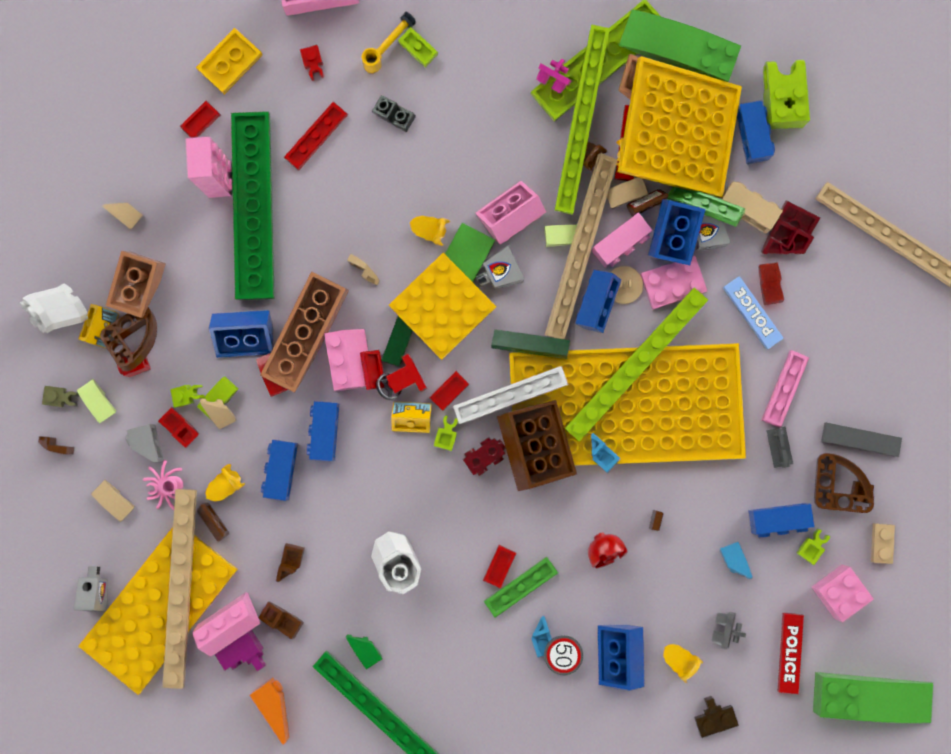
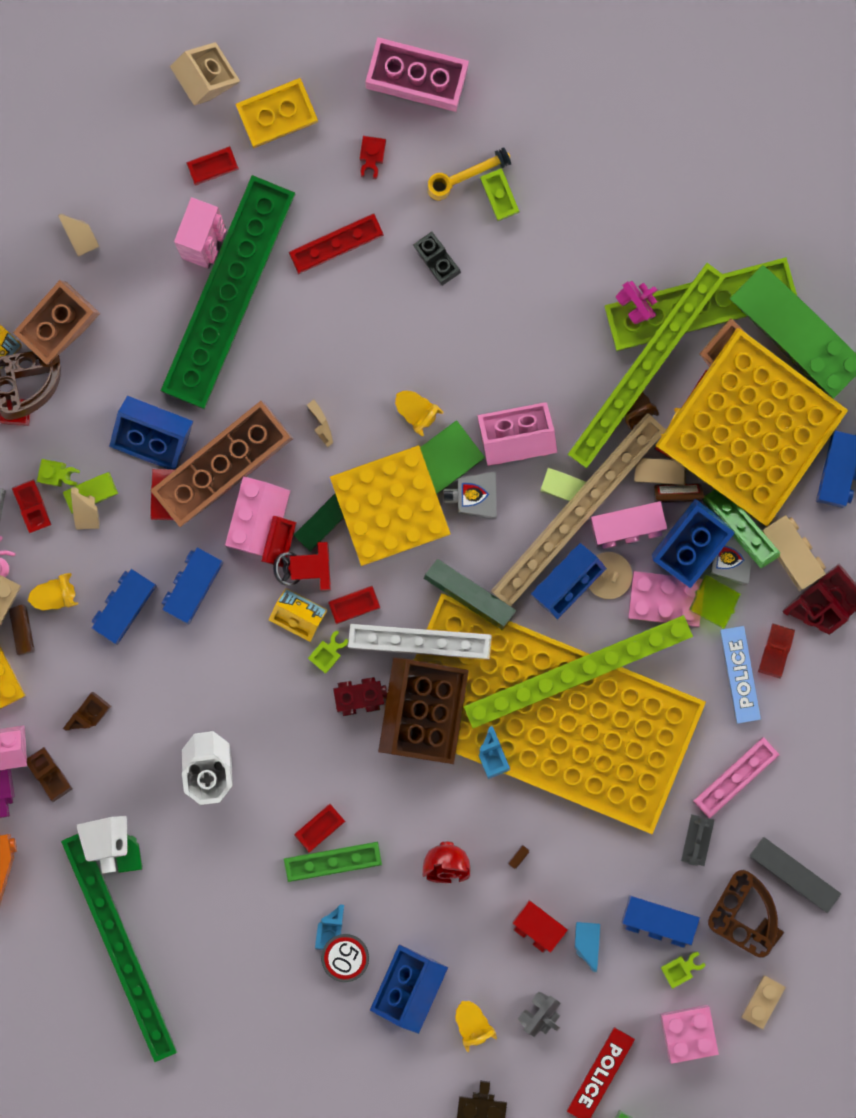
camera: 25 degrees right, 0 degrees up
(162, 55) = (204, 73): none -> tan slope
(344, 652) = (104, 841): none -> white torso
(695, 564) = (539, 926): none -> red brick
(710, 268) = (714, 601): none -> clear neon green piece

